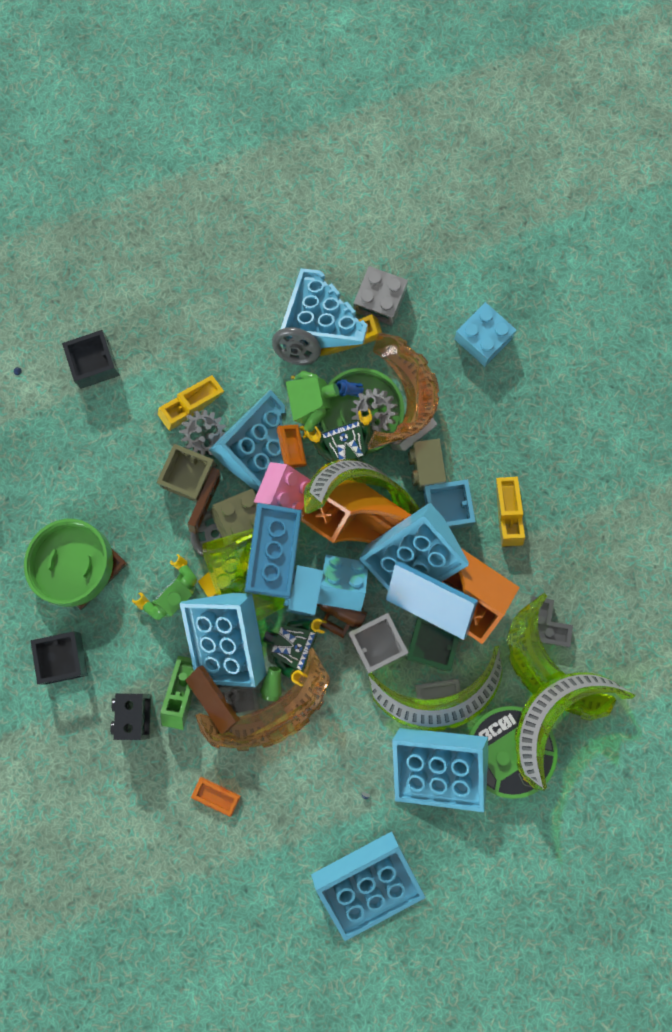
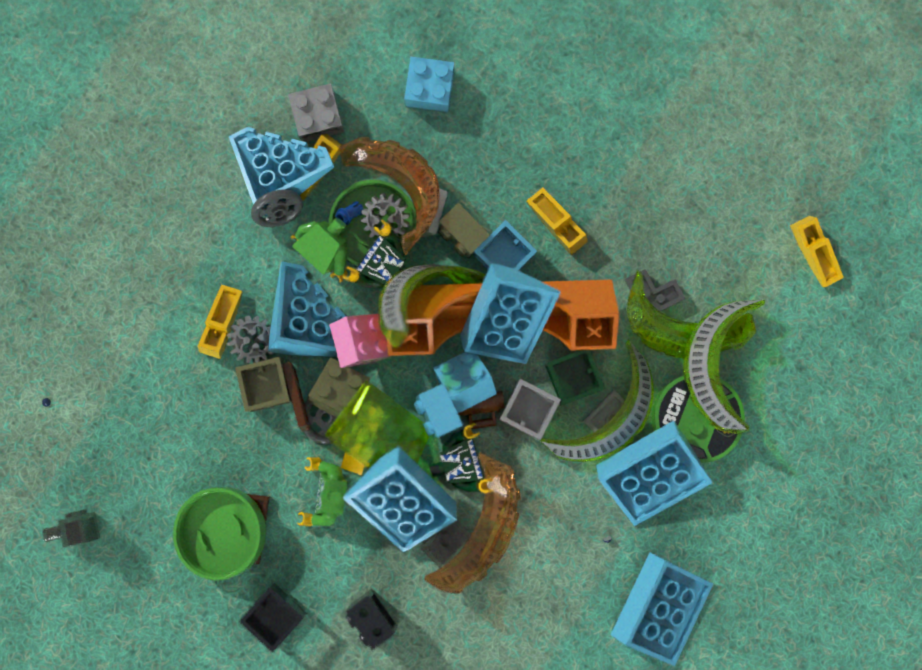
camera: 45 degrees left, 5 degrees up
(91, 359) = (105, 346): black piece -> none
(178, 696) = (395, 572): bright green slope -> none
(212, 699) = (428, 556): reddish brown tile -> none
(215, 796) = (487, 631): orange tile -> none
(272, 686) = (467, 508): bright green cone -> none
(273, 551) = (389, 397): dark azure tile -> none
(291, 445) = (335, 296): orange tile -> none
(431, 600) = (549, 343): tile -> none

